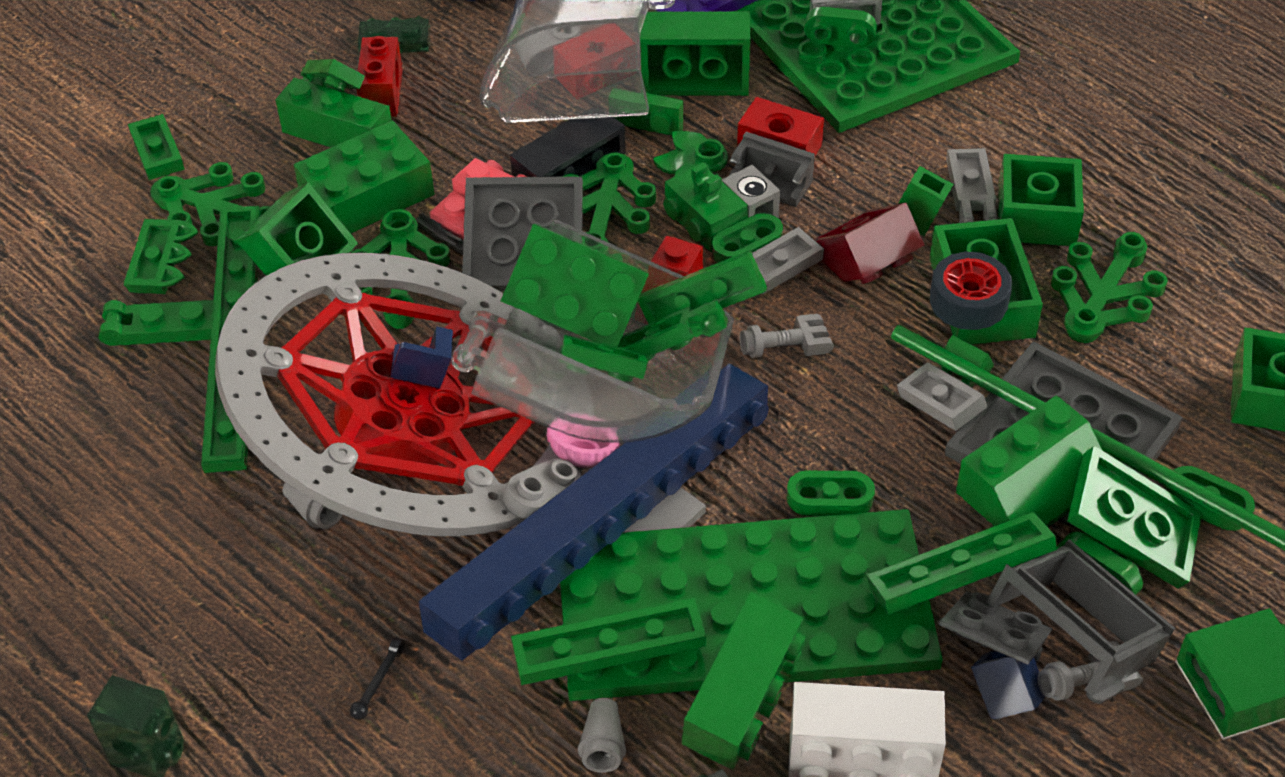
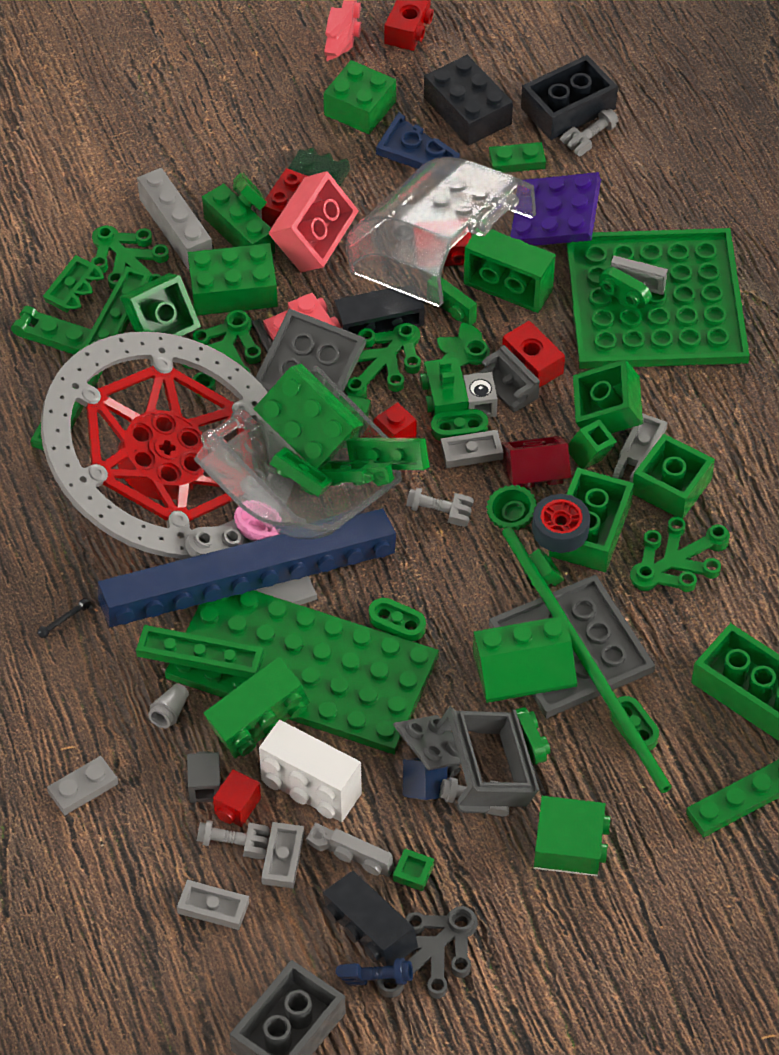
camera: 25 degrees right, 5 degrees up
(156, 147) = (112, 199): green plate -> none
(246, 136) = (172, 214): none -> light grey brick
(422, 363) = (186, 430): dark blue panel -> none
(431, 82) = (313, 222): none -> coral brick
(878, 305) = (511, 507): none -> green hat
(907, 137) = (608, 395): none -> green brick
(942, 396) = (508, 586): light grey plate -> none
(961, 562) = (436, 695): green plate -> none
(1135, 517) = (568, 714): green plate -> none

